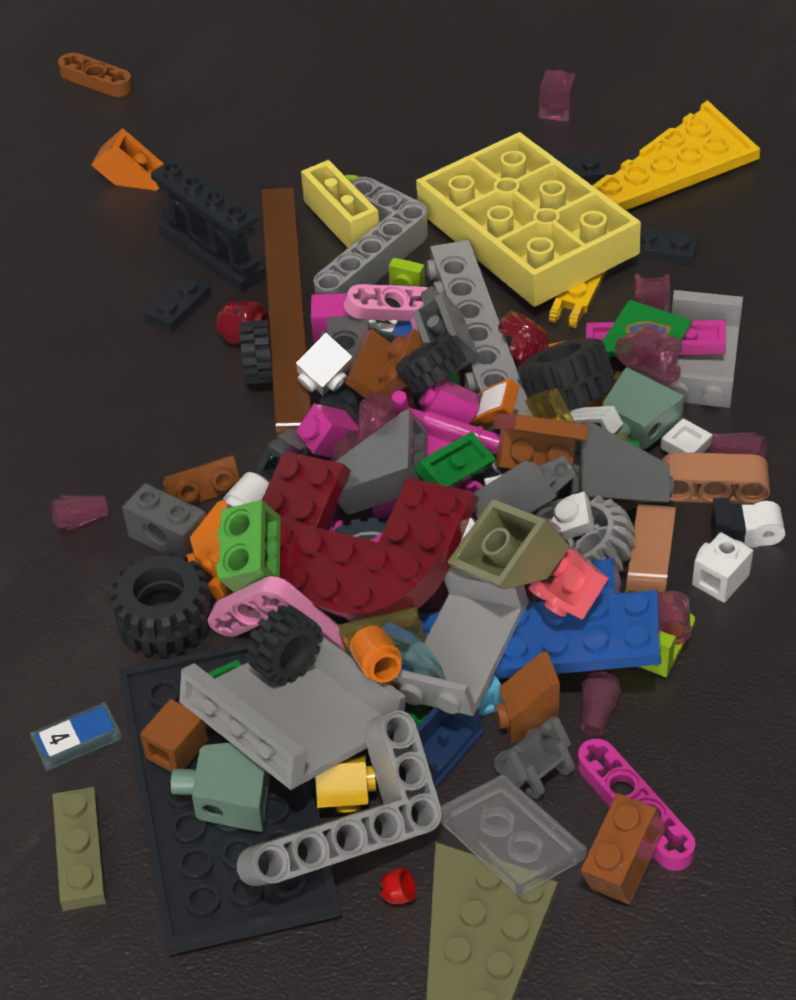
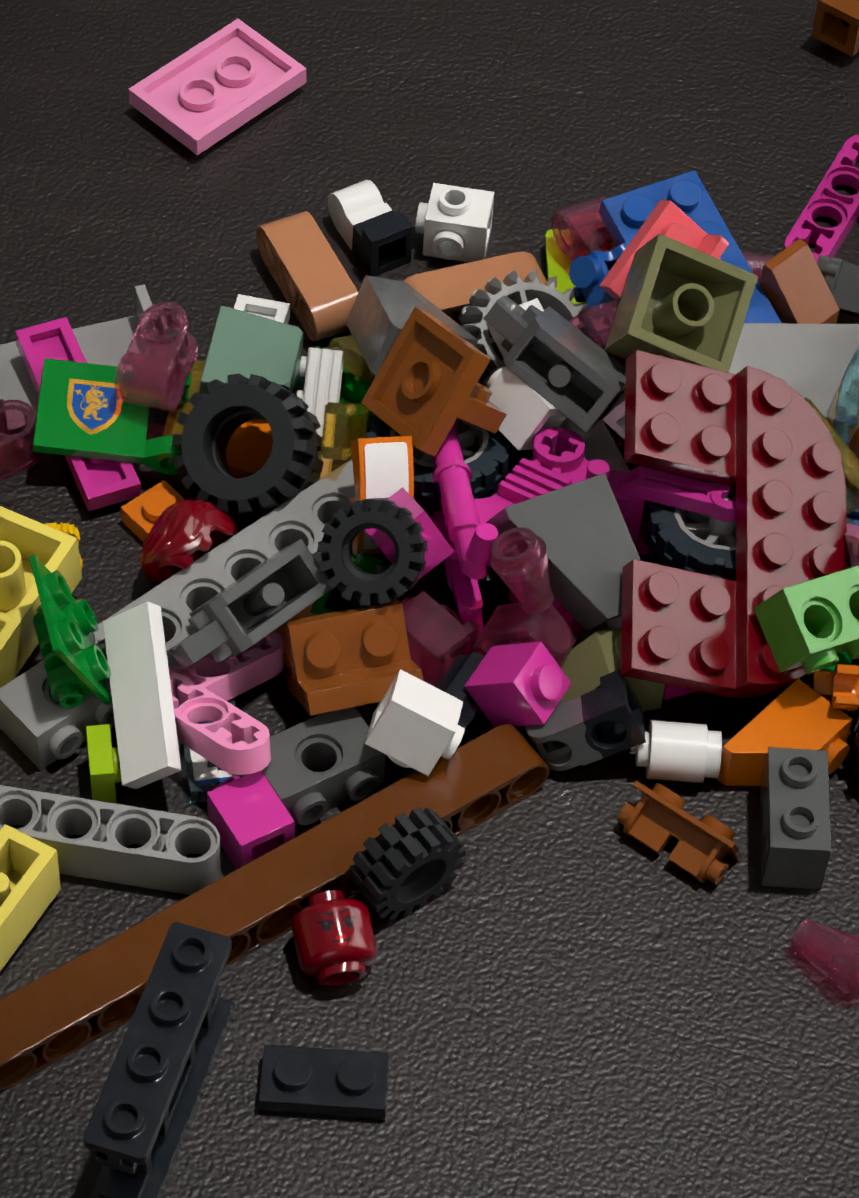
camera: 125 degrees left, 5 degrees up
(421, 279) = (141, 695): none -> white tile
(456, 462) = (541, 452): green plate -> none
(467, 247) = (66, 641): none -> green hinge
(739, 443) = (235, 264): clear pink cone -> none

